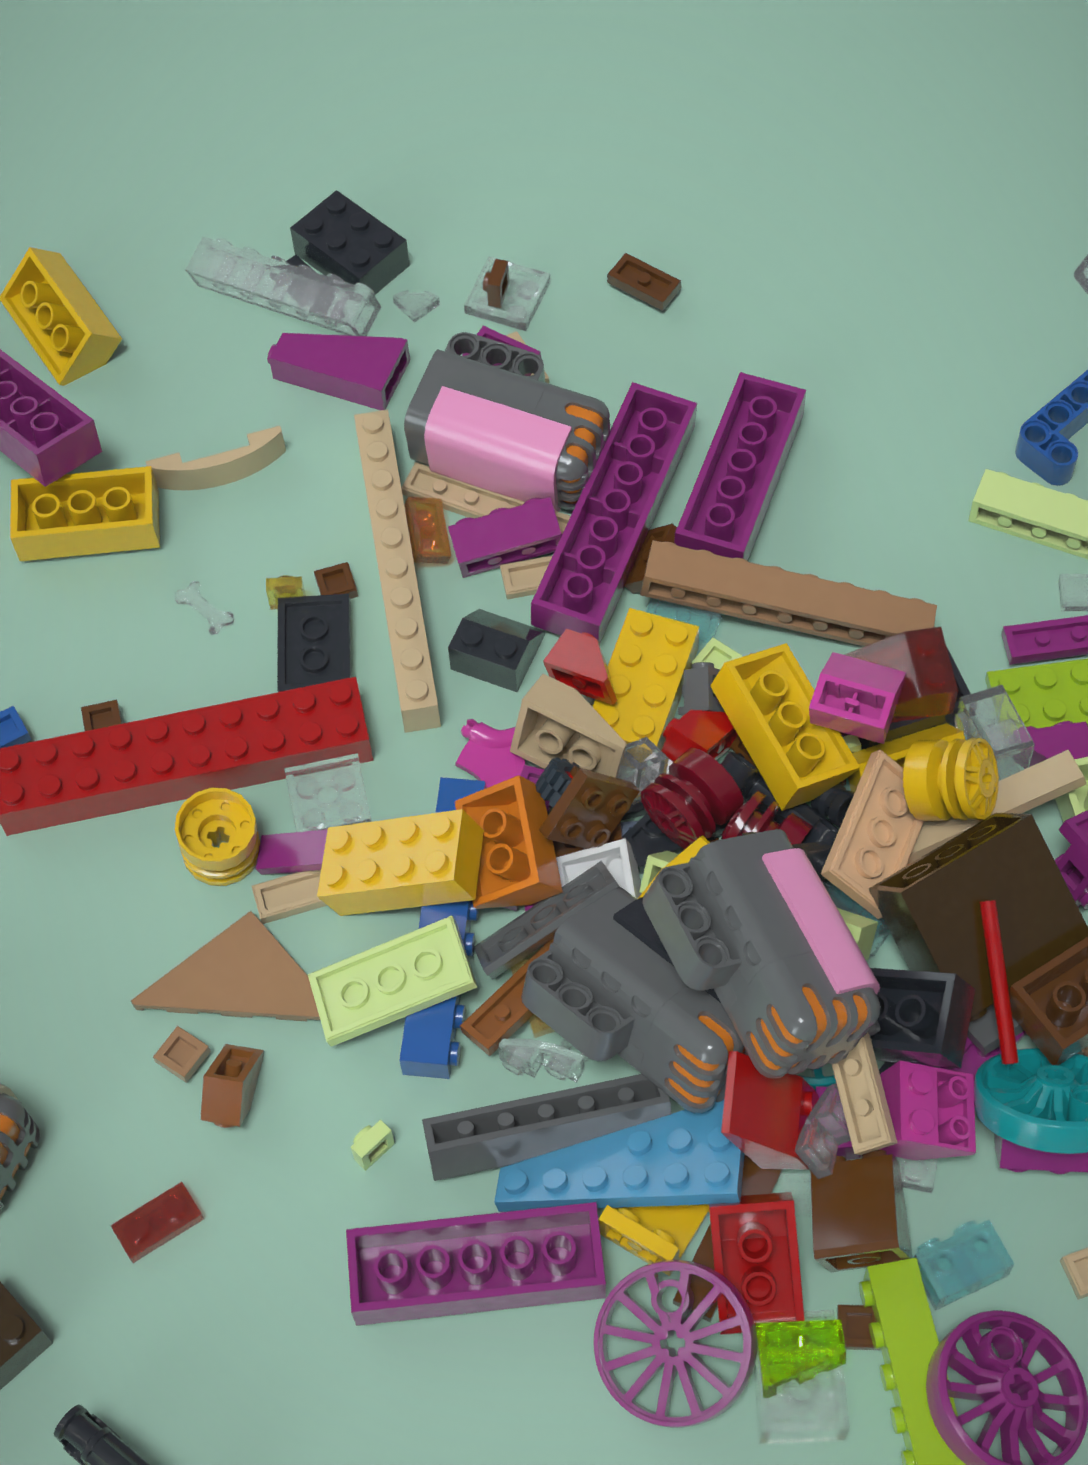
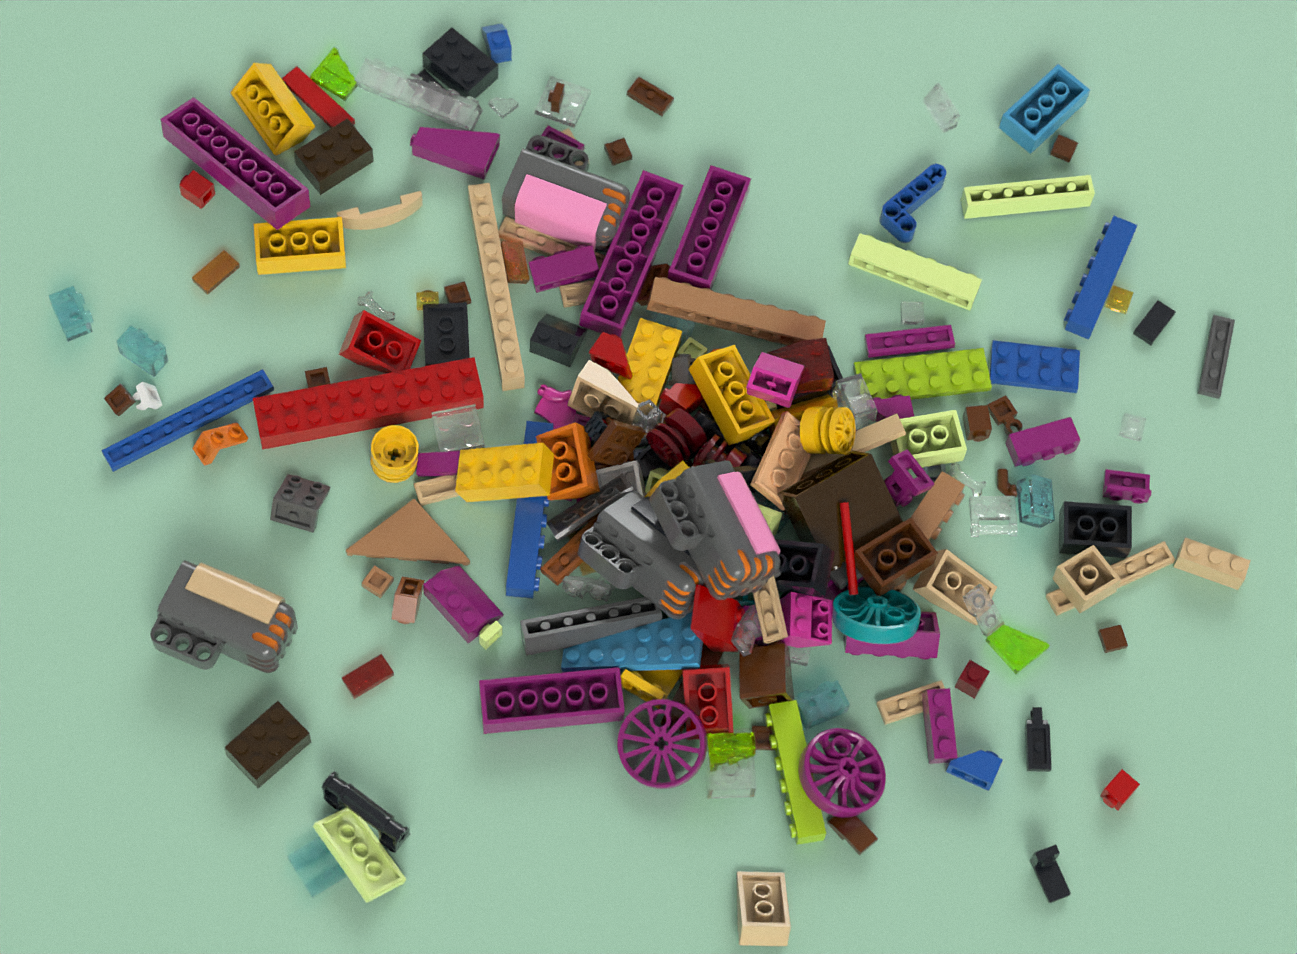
camera: 10 degrees left, 5 degrees up
(56, 920) = (298, 502): none -> dark grey bracket
(132, 305) = (315, 98): none -> red tile
(148, 381) = (333, 156): none -> dark brown brick
(157, 268) = (334, 76): none -> clear neon green wing
(204, 662) = (378, 344): none -> red slope
(324, 1087) = (461, 602): none -> magenta slope
(391, 981) = (500, 541): yellowish green tile -> none
(409, 215) = (497, 43): none -> blue slope
(594, 363) = (618, 151): none -> reddish brown plate

